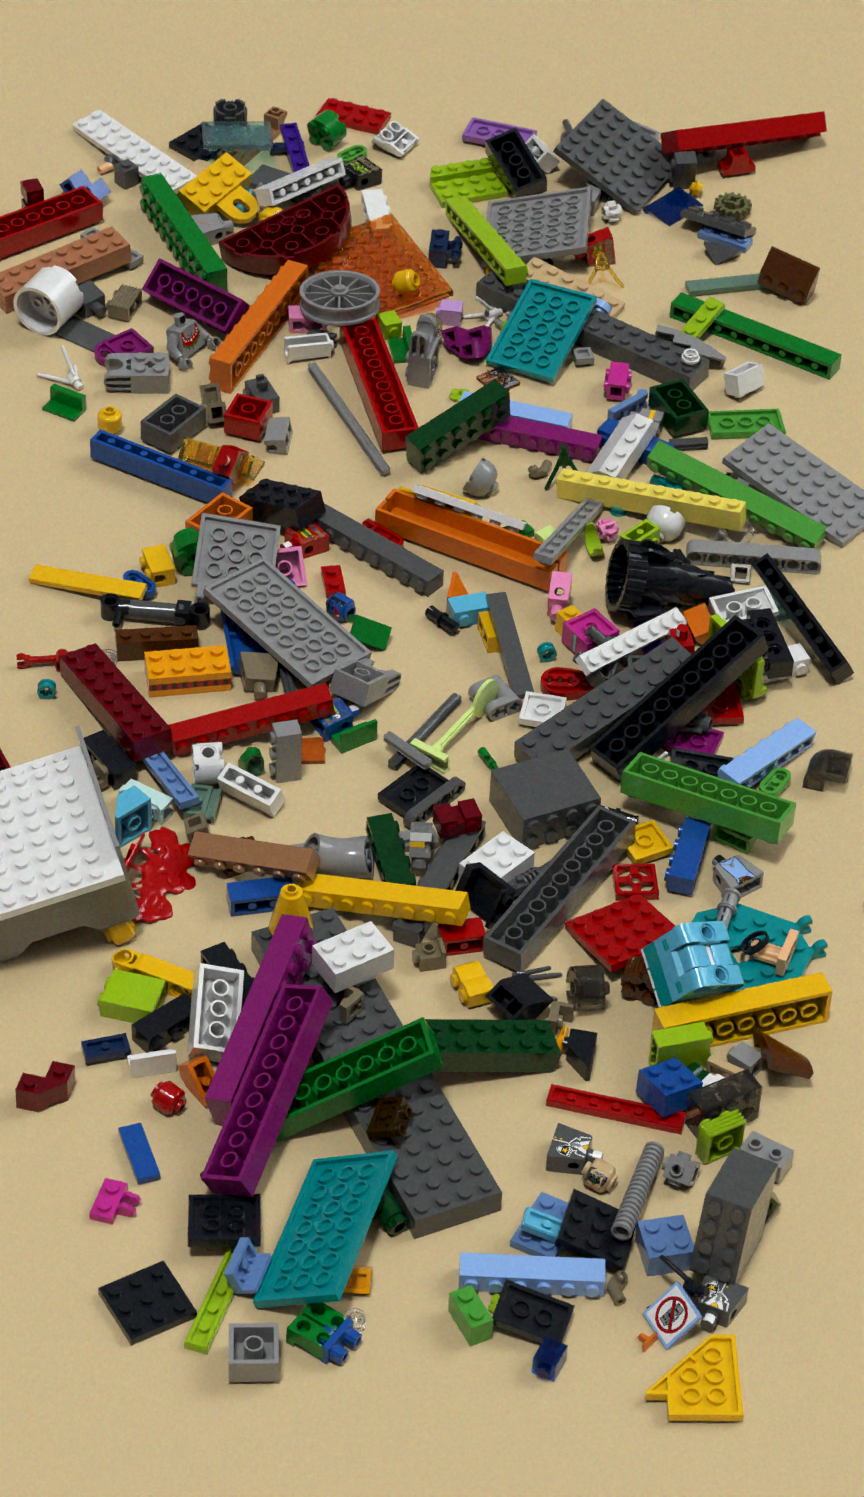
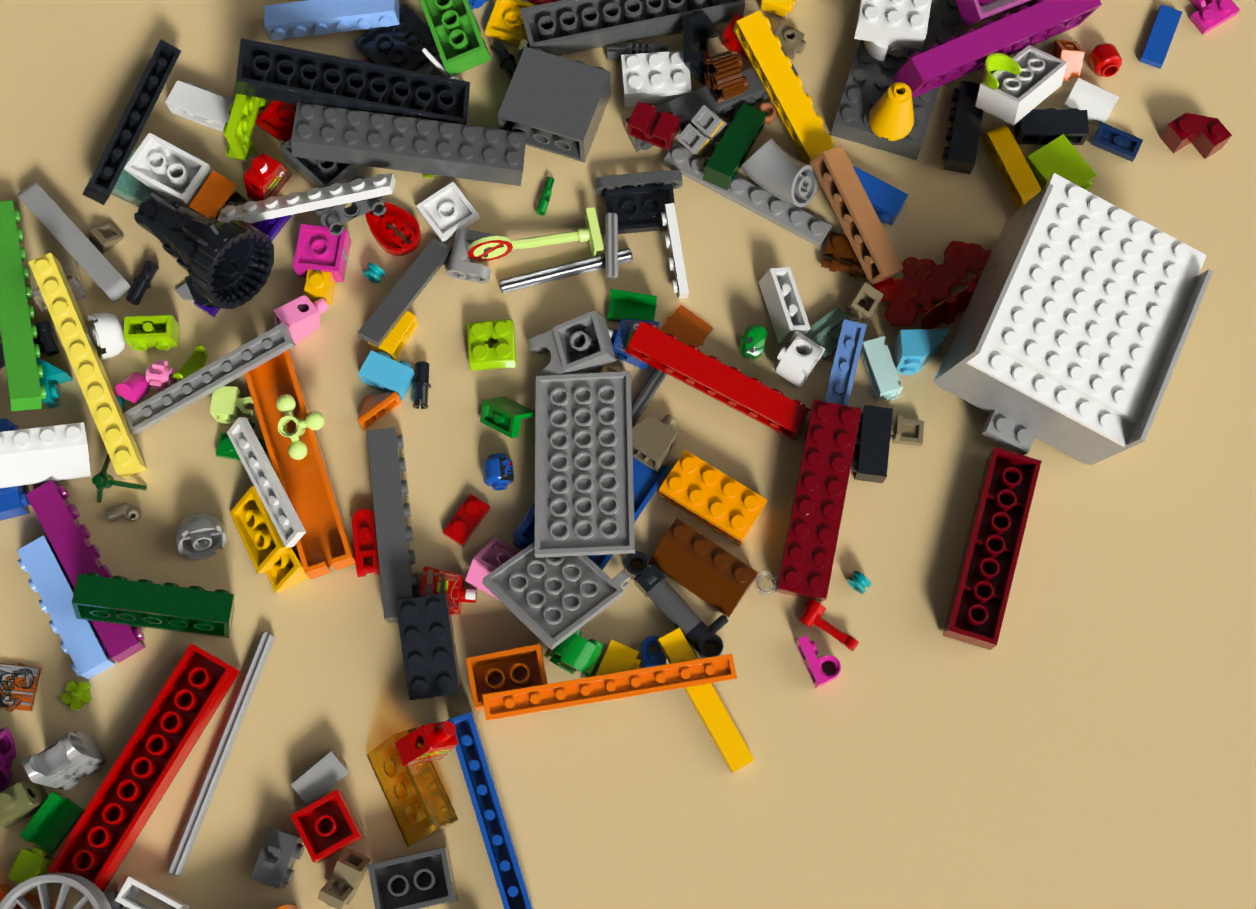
camera: 135 degrees left, 30 degrees up
(32, 635) = (808, 652): none -> dark pink plate
(149, 541) = (609, 687): none -> orange plate
(249, 978) = (998, 62): none -> lime helmet
(285, 751) = (727, 306): light grey brick -> none
(359, 773) = (672, 241): none -> white plate
(424, 663) = (503, 351): none -> lime brick
(439, 866) = (725, 76): none -> reddish brown brick
(486, 537) = (314, 421): none -> yellowish green piece
(615, 513) = (132, 387): none -> dark pink brick
(778, 657) = (197, 97): black brick -> none

